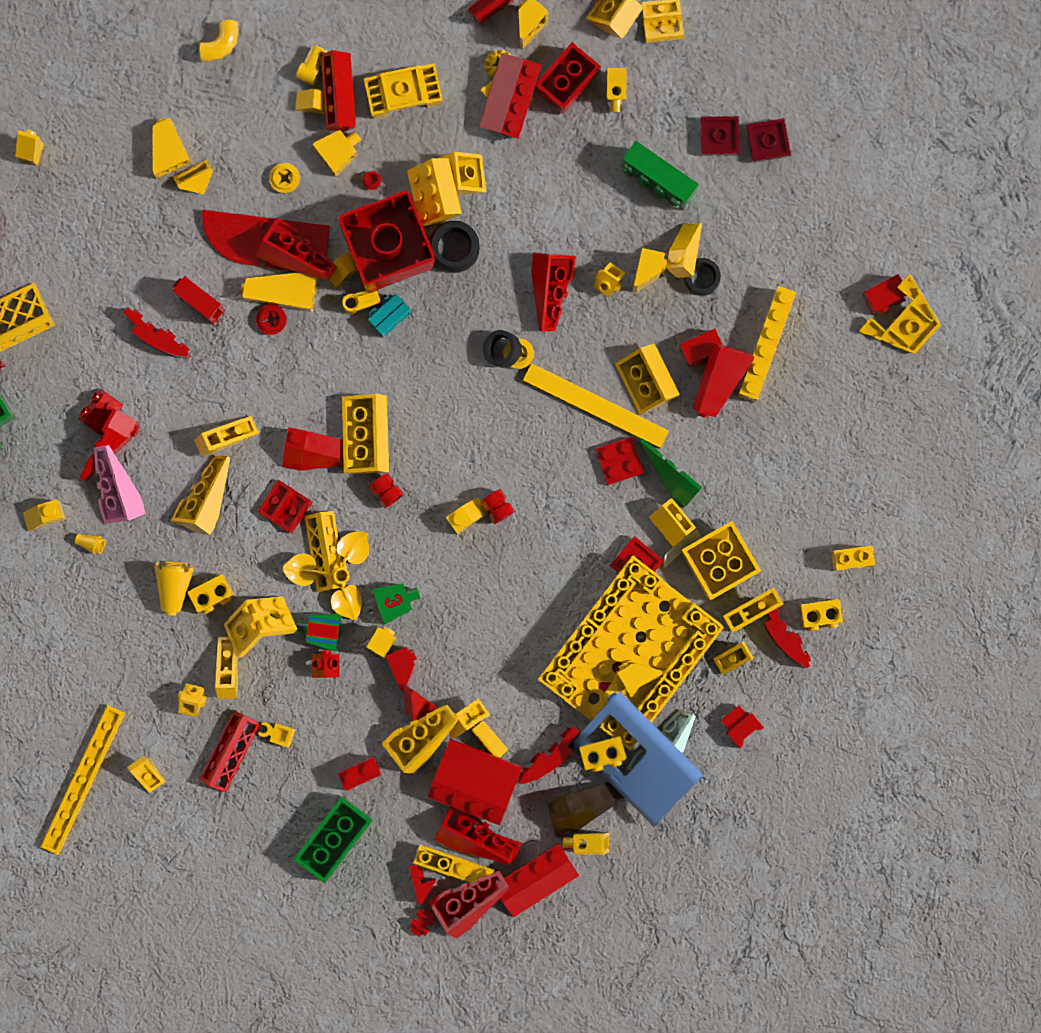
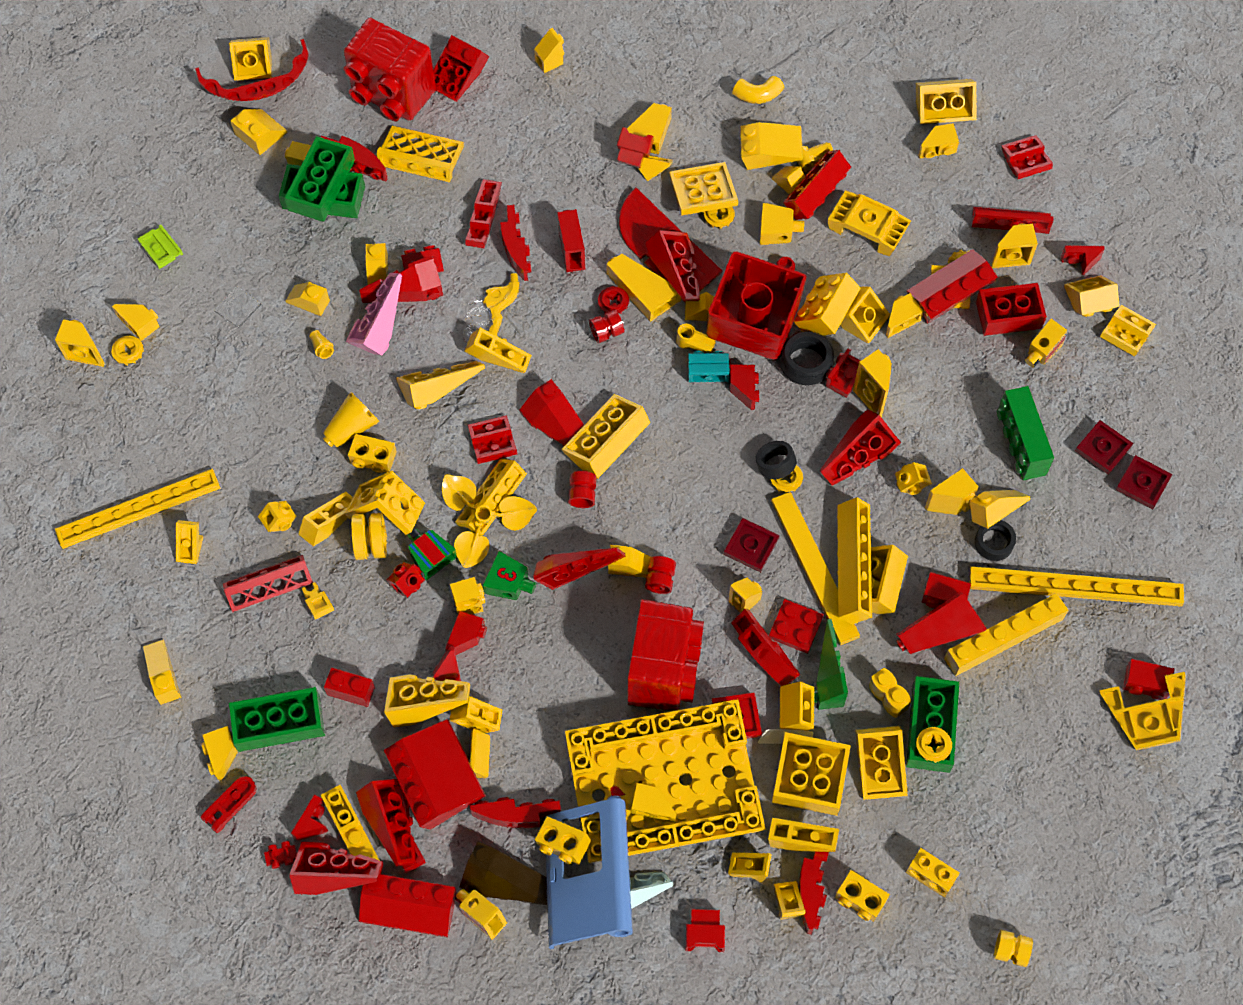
camera: 45 degrees right, 20 degrees down
(71, 445) = (376, 262): none -> yellow slope
(107, 331) = (483, 213): none -> red slope
(174, 180) = (633, 148): none -> red piece
(186, 409) = (488, 308): none -> piece
(219, 876) = (161, 672): none -> yellow slope
(255, 167) = (703, 188): none -> yellow plate
(273, 85) = (770, 144): none -> yellow slope
(274, 655) = (366, 536): none -> yellow wheel
(287, 346) = (606, 326): none -> red wheel
(314, 892) = (221, 751): none -> yellow slope
(356, 919) = (230, 803): none -> red plate
(425, 306) = (743, 384): none -> red slope
(426, 563) = (566, 567): none -> red wedge
(492, 148) = (903, 314): none -> yellow slope
(493, 234) = (843, 375): none -> red bracket
(524, 229) = (873, 381): none -> yellow slope
(539, 428) = (751, 545): none -> dark red plate
(556, 569) = (664, 656): none -> red brick
(568, 469) = (744, 594): none -> yellow slope
(614, 500) = (763, 649): none -> red slope
(621, 380) = (854, 561): none -> yellow brick
(717, 454) = (893, 696): none -> yellow brick
(757, 510) = (881, 762): none -> yellow slope
(771, 454) = (932, 705): none -> green brick
(777, 658) = (789, 900): none -> yellow slope
(784, 264) = (1077, 586): none -> yellow plate
(787, 463) = (940, 737): none -> yellow gear
(943, 564) = (1013, 948): none -> yellow wheel

